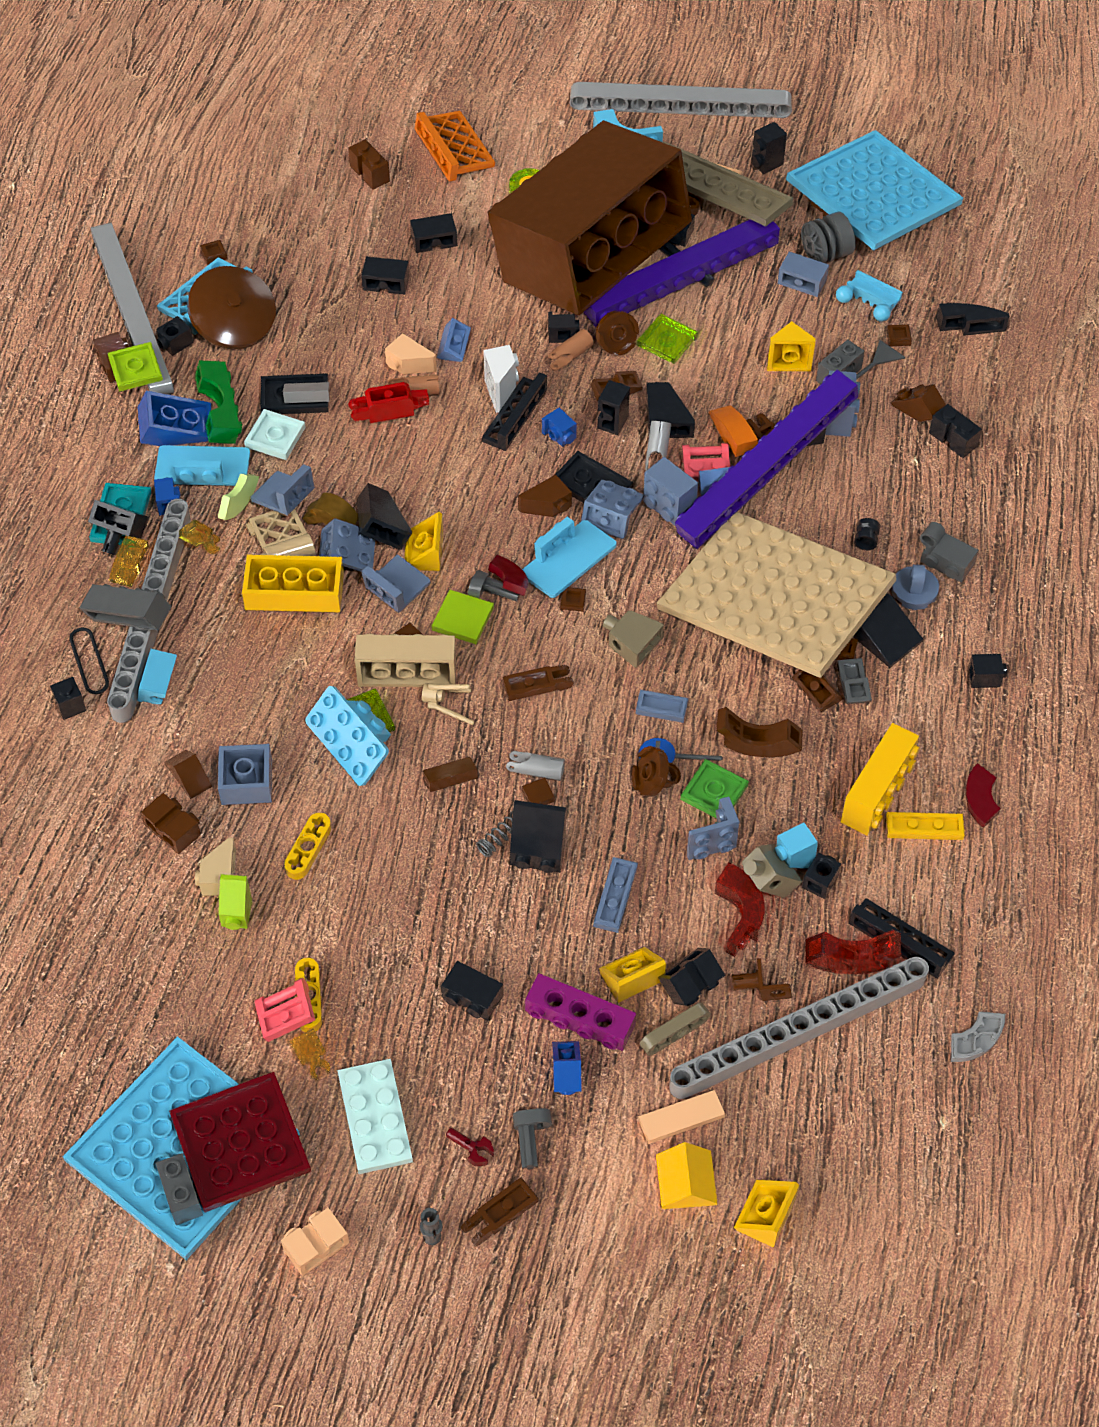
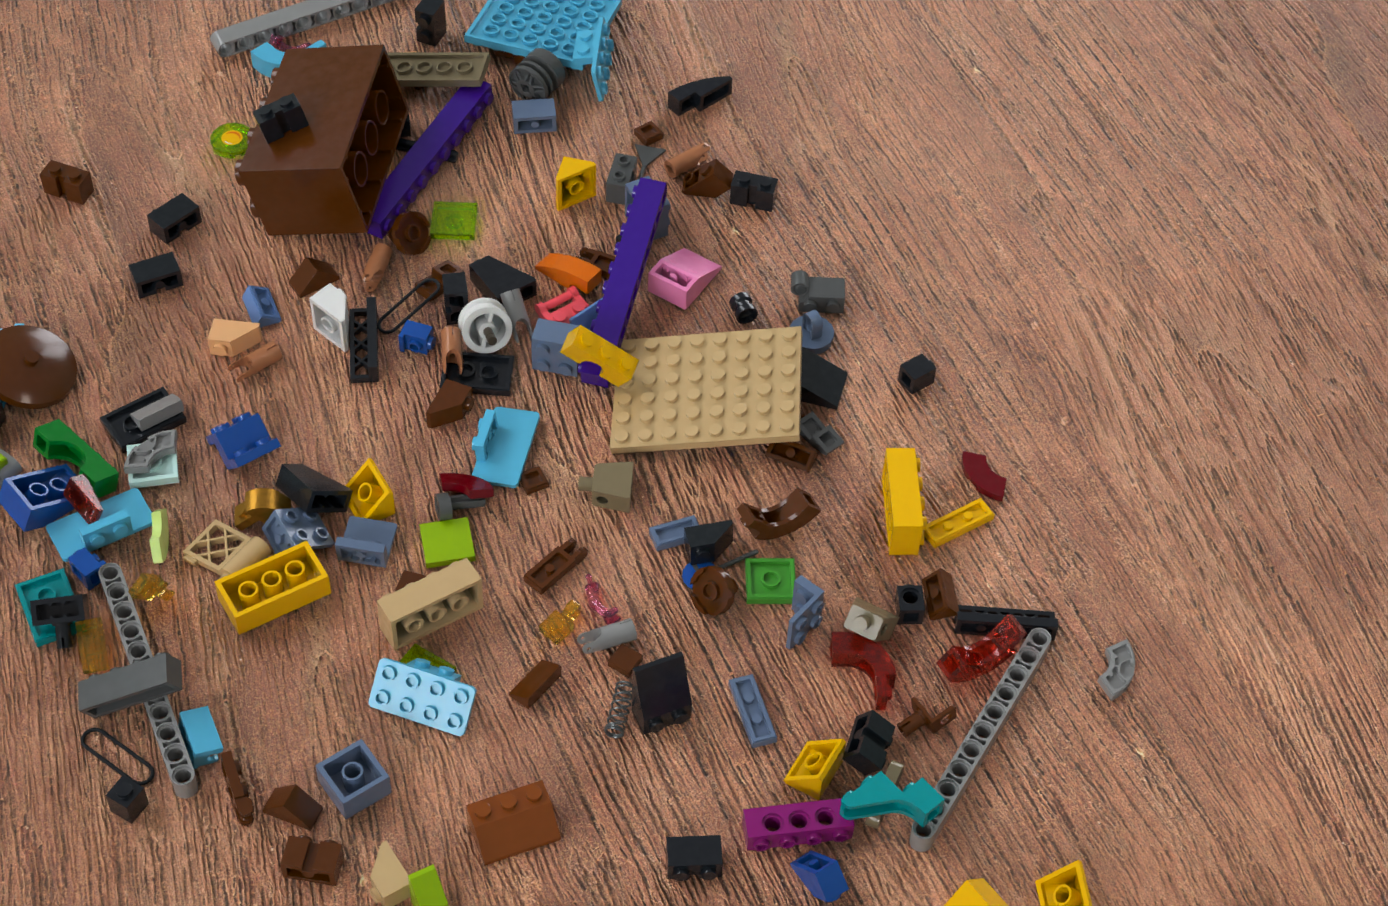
camera: 35 degrees left, 5 degrees down
(154, 734) = (237, 790): none -> reddish brown hinge
(197, 435) = (83, 498): none -> clear red slope
(271, 424) = (147, 453): none -> light grey tile
(284, 491) = (201, 511): sand blue bracket -> none
(308, 857) = (449, 823): yellow beam -> none
(346, 879) = (513, 822): none -> dark orange slope
(353, 448) = (242, 440): none -> blue bracket
(388, 402) = (243, 386): red hinge -> none
(436, 693) = (472, 620): tan plant -> none
(440, 147) = (127, 140): orange fence -> none
(504, 734) = (560, 625): none -> clear yellow plate
(513, 332) = (312, 276): none -> reddish brown slope
(547, 178) = (280, 117): none -> black brick
(552, 722) = (592, 594): none -> clear pink piece
(561, 327) = (354, 251): black brick -> none
(569, 390) = (414, 311): none -> black piece
(580, 449) = (451, 347): none -> nougat piece
(611, 507) = (514, 385): sand blue bracket -> none
(620, 443) = (485, 325): none -> white wheel
(626, 113) = (277, 42): none -> clear pink piece
(658, 1026) = (881, 796): none -> teal arch
(681, 727) = (707, 541): none -> black slope
(681, 1117) = (940, 864): light nougat tile -> none
(685, 502) = (587, 346): none -> yellow arch
(797, 847) = (880, 588): medium azure slope -> none
(831, 479) = (681, 277): none -> bright pink slope
(858, 882) = (940, 595): none -> reddish brown slope
(874, 291) = (602, 105): medium azure gear -> none
(897, 240) = (595, 48): none -> medium azure bracket
(915, 375) = (686, 160): none -> nougat piece

